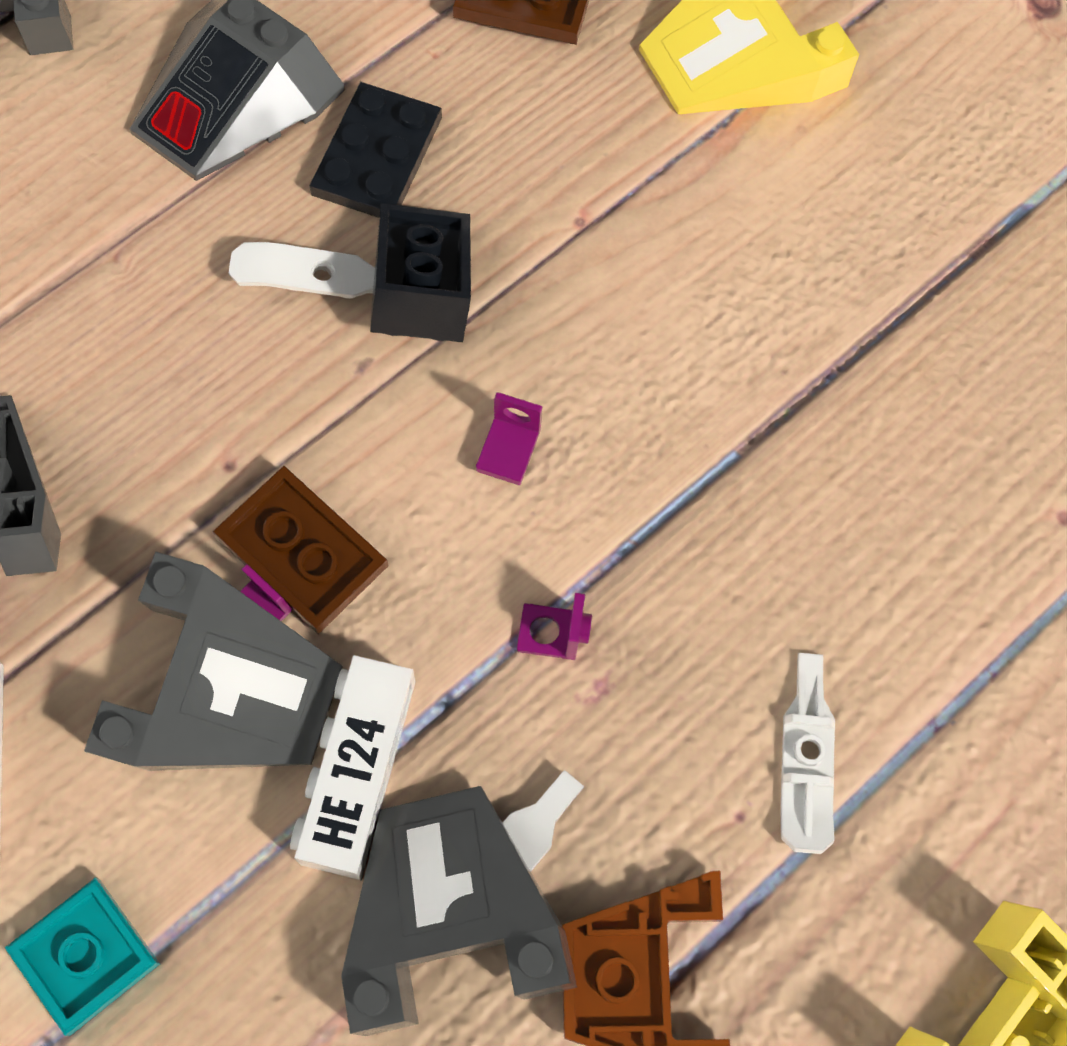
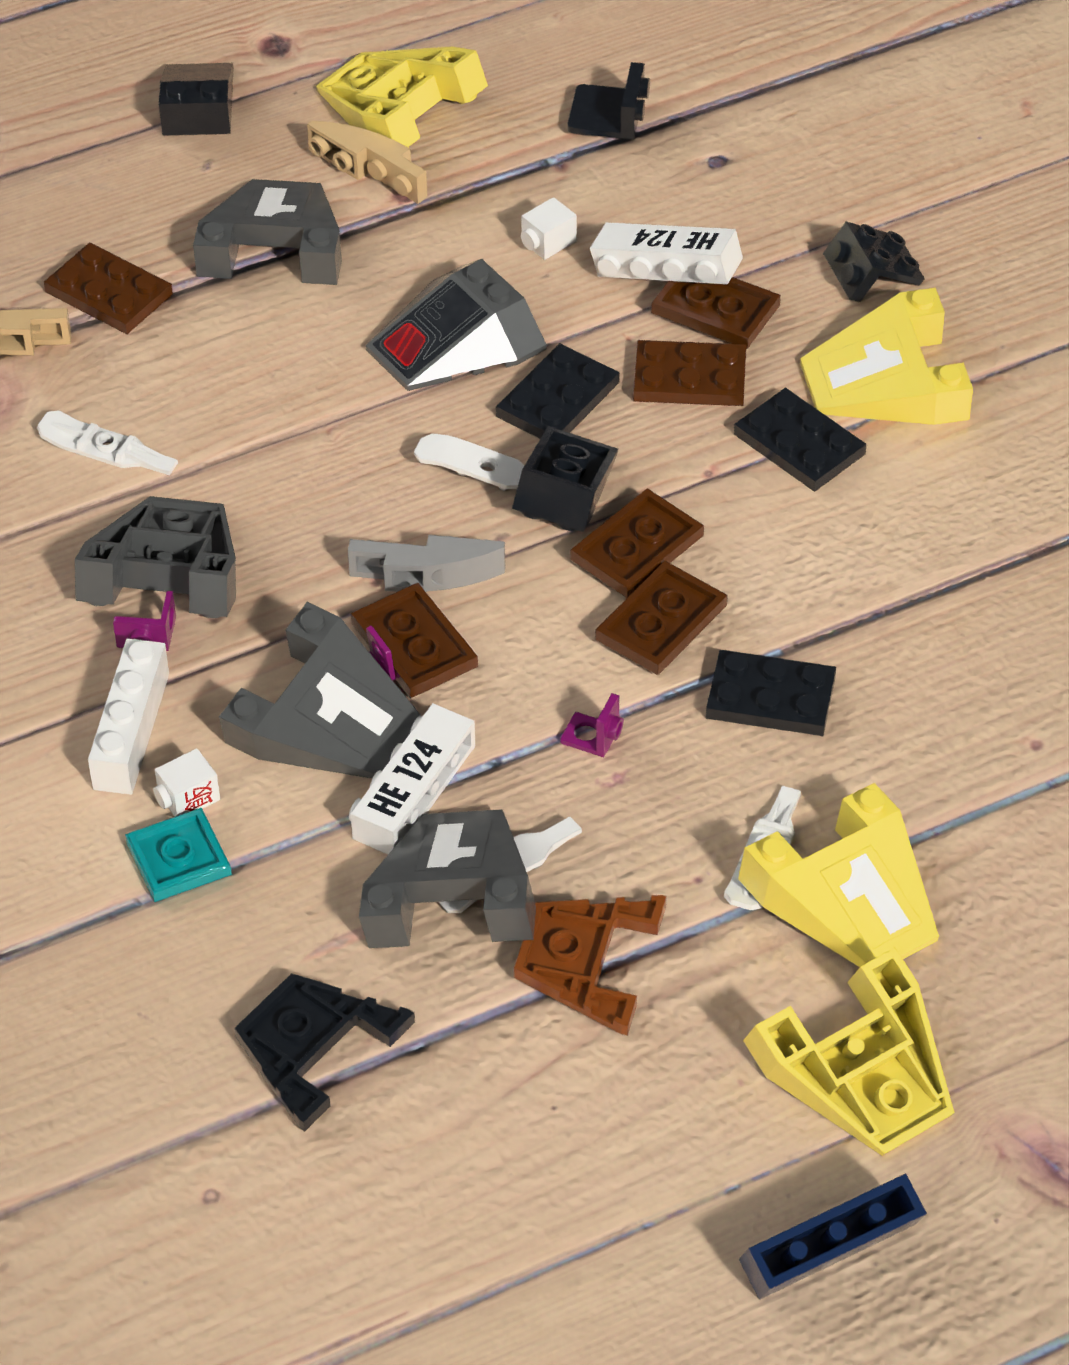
camera: 20 degrees right, 20 degrees down
(65, 851) = (186, 784): none -> white brick
(307, 429) = (439, 565): none -> light grey slope
(510, 439) = (600, 598): magenta bracket -> none
(521, 90) = (690, 373): none -> reddish brown plate
(530, 340) = (636, 542): none -> reddish brown plate
(589, 445) = (661, 617): none -> reddish brown plate
(672, 155) = (800, 439): none -> black plate
(747, 520) = (771, 692): none -> black plate
(951, 810) = (854, 893): none -> light yellow wedge

